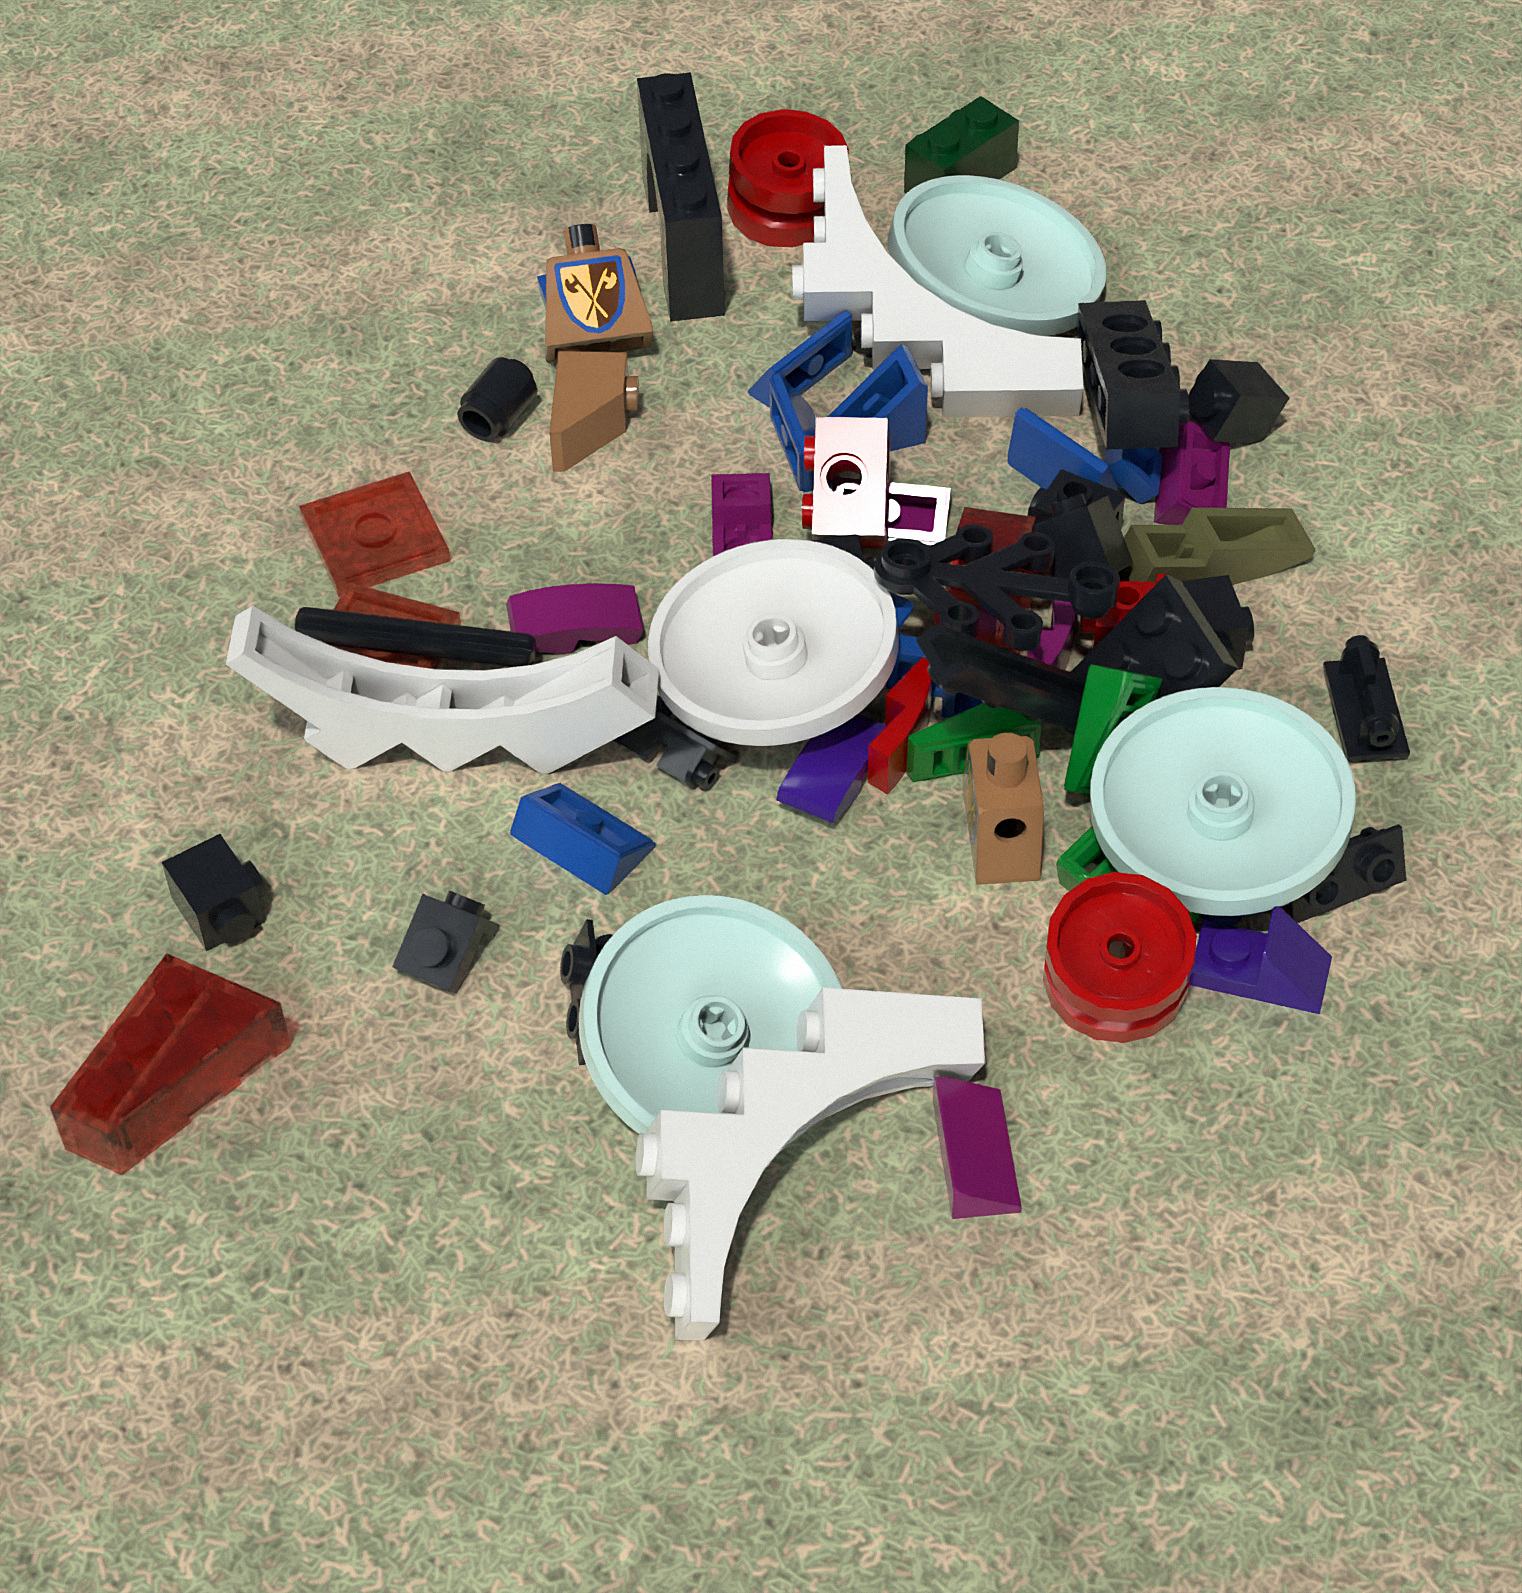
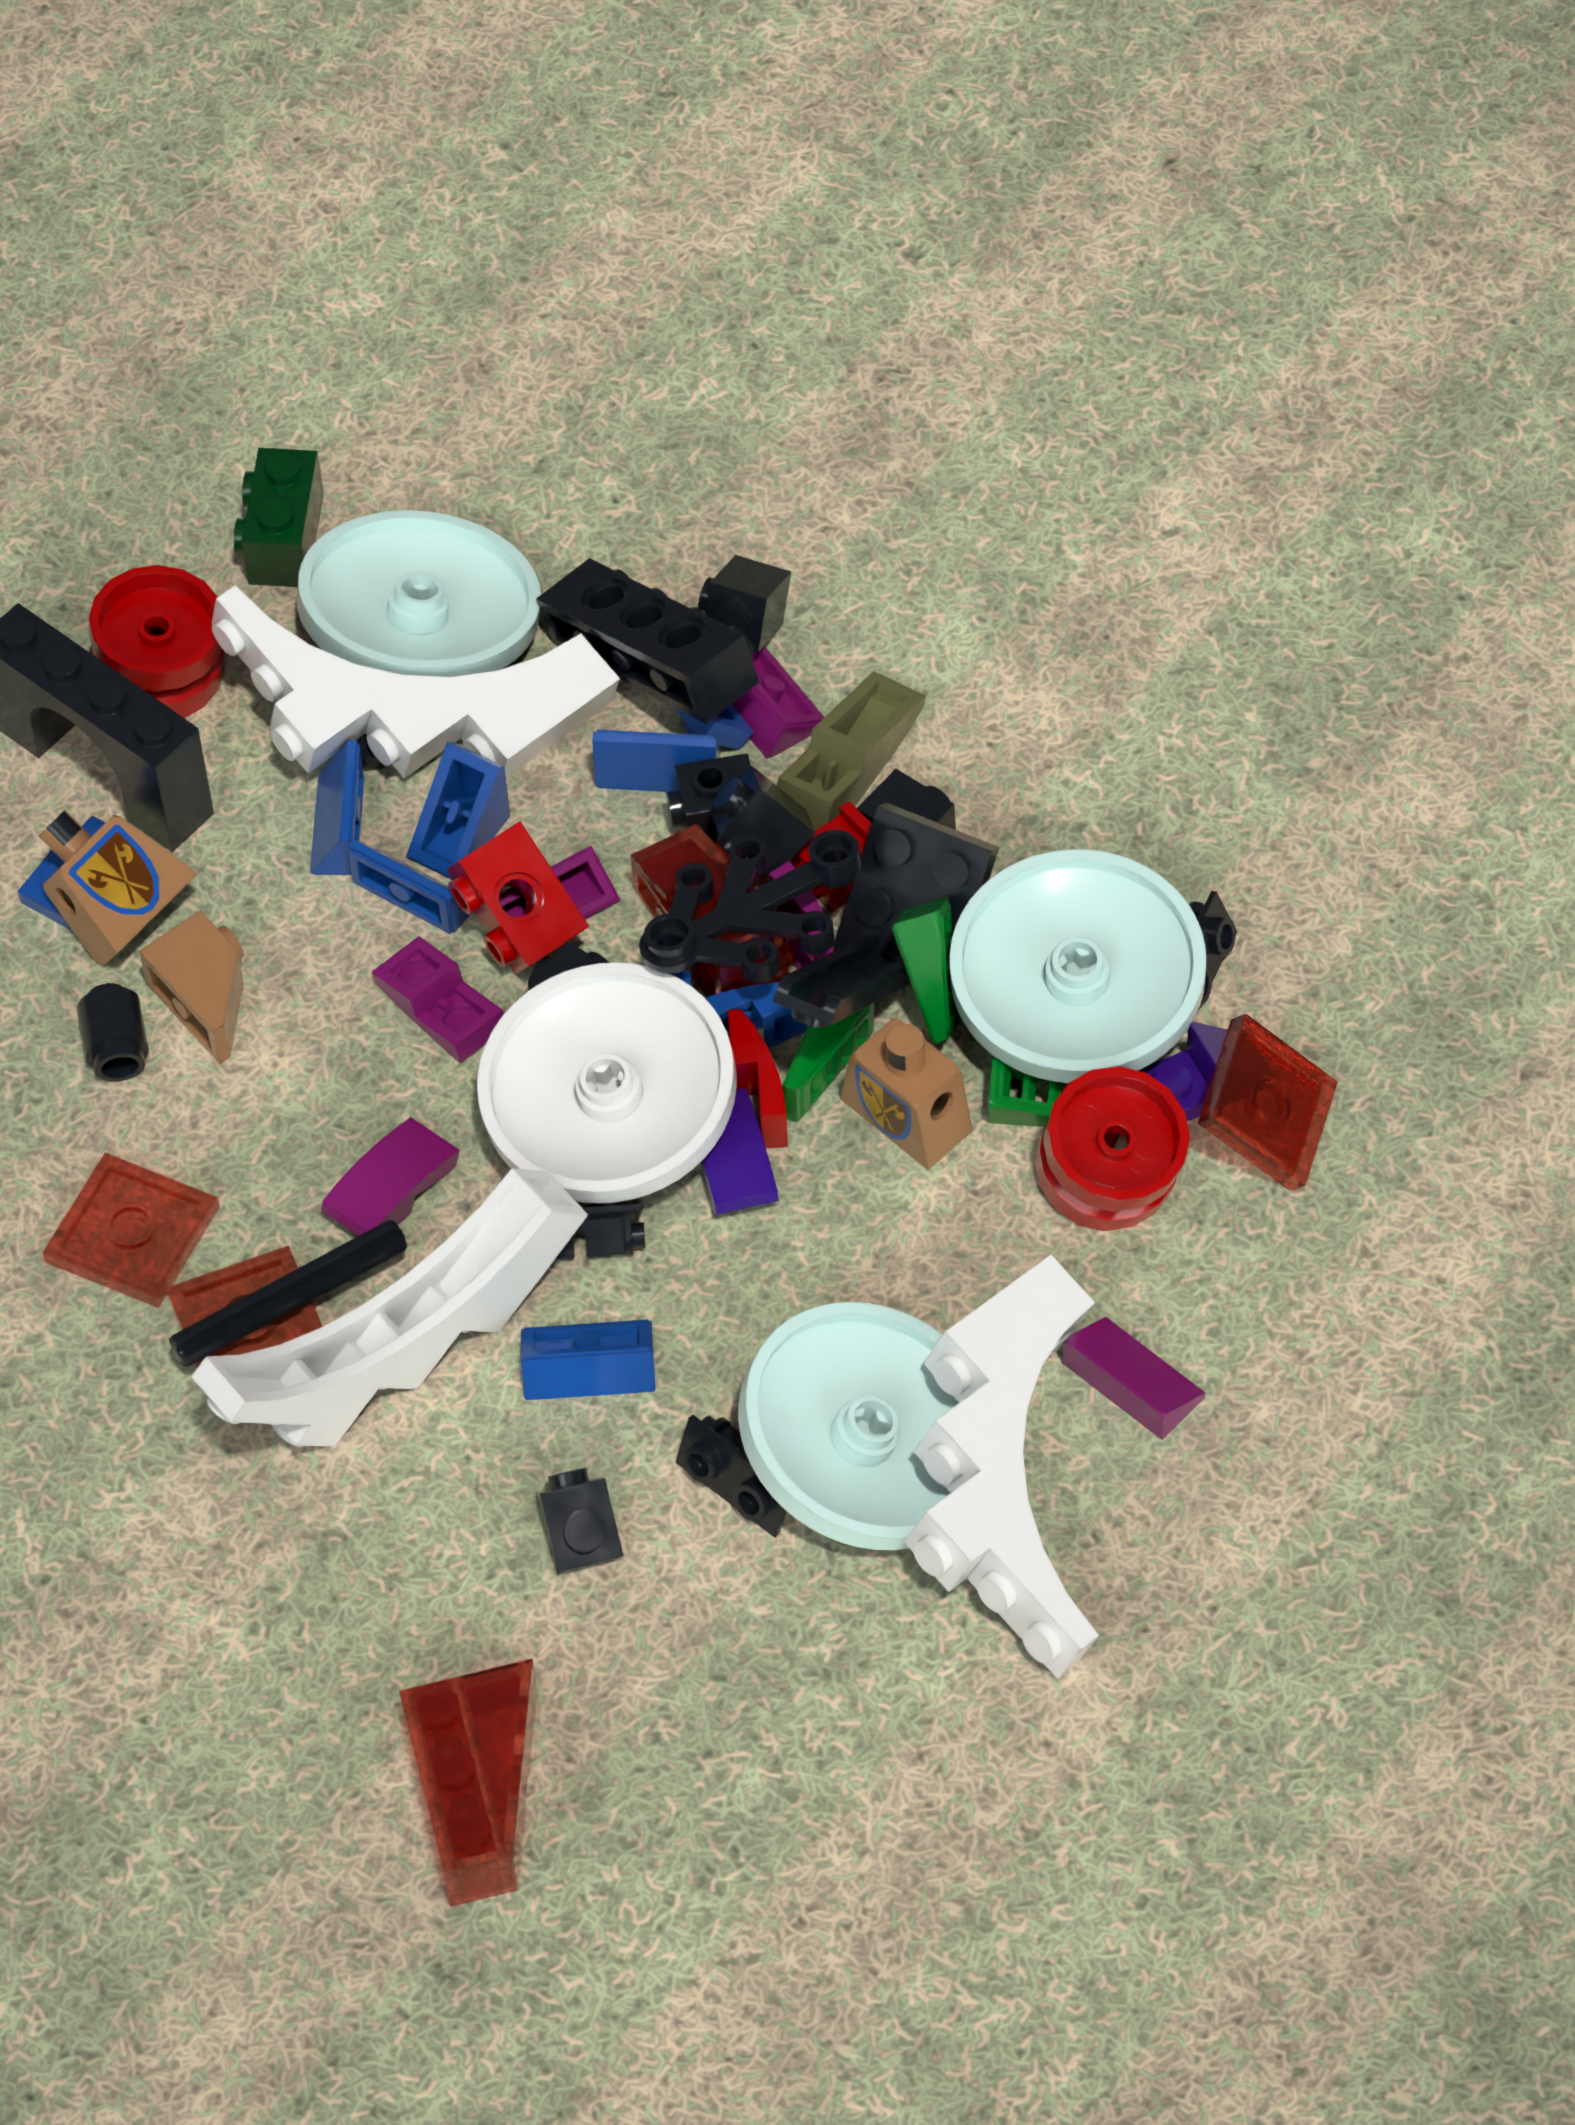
camera: 40 degrees left, 5 degrees up
(215, 892) = (357, 1622): black brick -> none
(1288, 1015) = (1267, 1102): none -> clear red tile
(1365, 703) = (1082, 804): black hinge -> none

